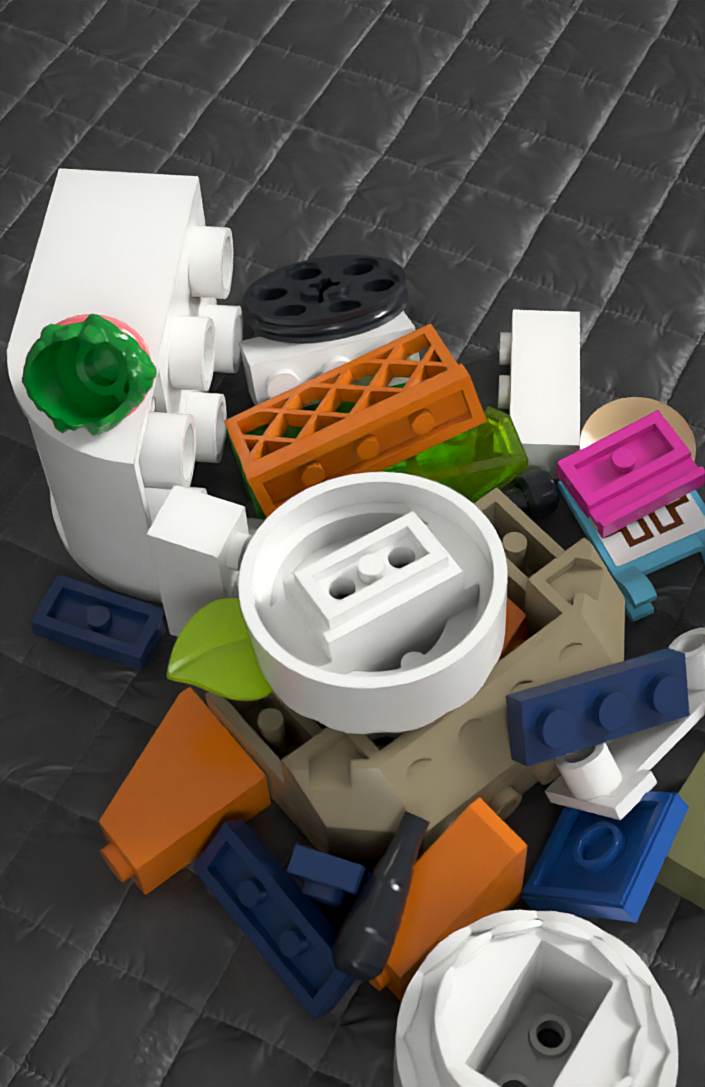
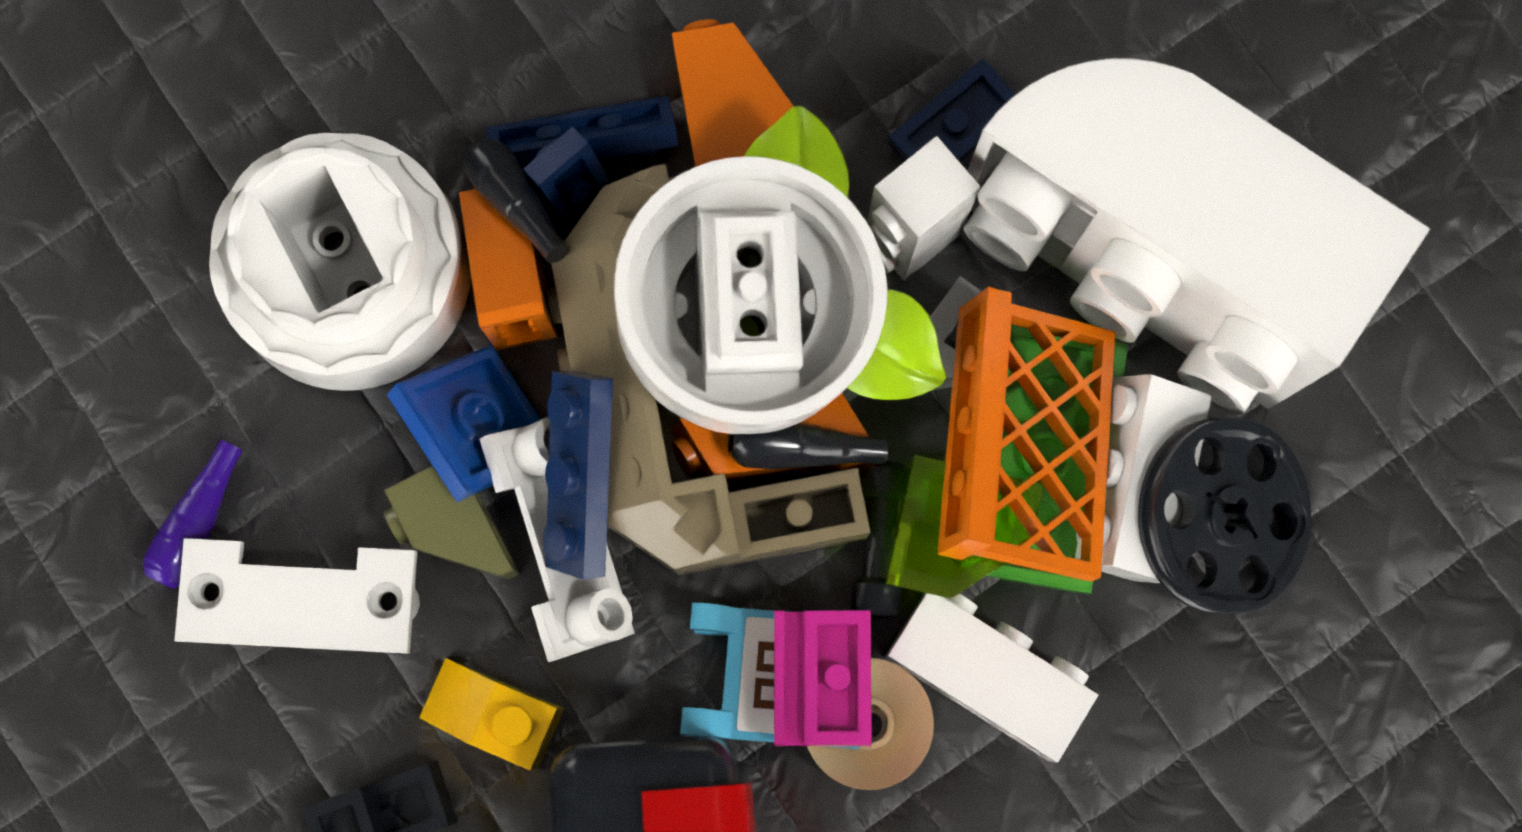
camera: 115 degrees right, 25 degrees up
(88, 372) = (1086, 113): green hair -> none

